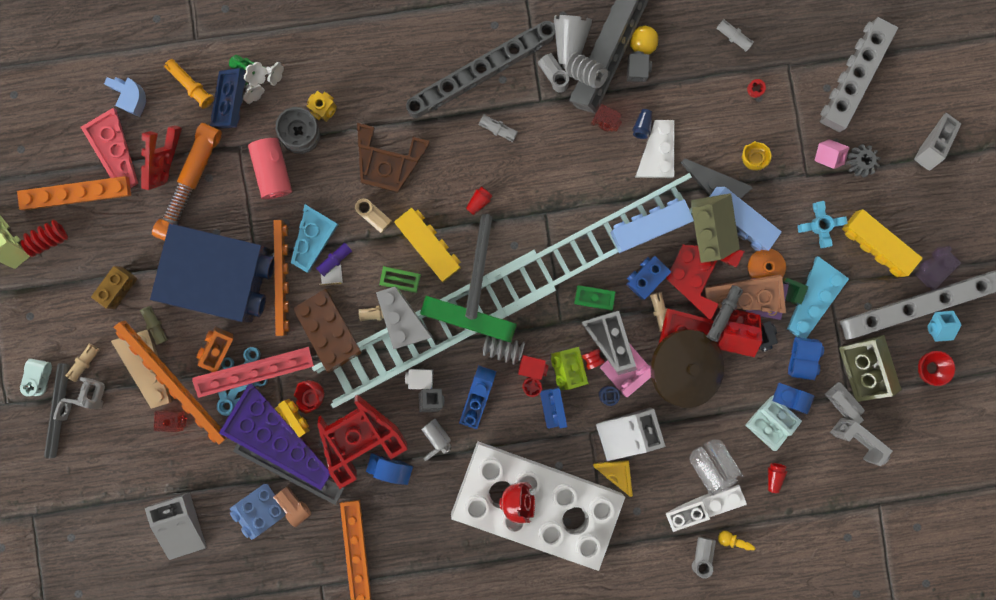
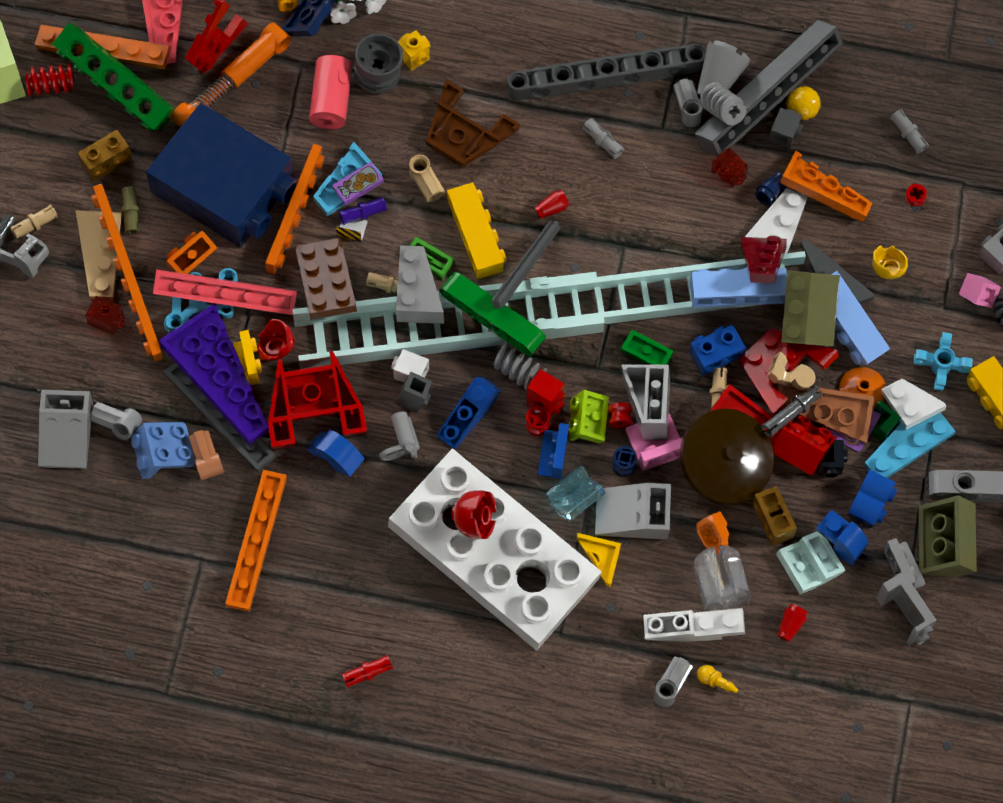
camera: 20 degrees right, 20 degrees down
(43, 207) = (67, 44): none -> green brick
(216, 504) = (122, 423): none -> light grey piece
(321, 240) = (358, 183): none -> tile
(581, 436) = (574, 494): none -> clear light blue bracket
(663, 195) = (763, 257): none -> dark red wing
(678, 109) = (826, 189): none -> orange wing
(695, 428) = (713, 531): none -> orange rock
(719, 283) = (799, 377): none -> tan leg
(737, 401) = (774, 516): none -> pearl gold brick
(809, 269) = (911, 403): none -> white wing

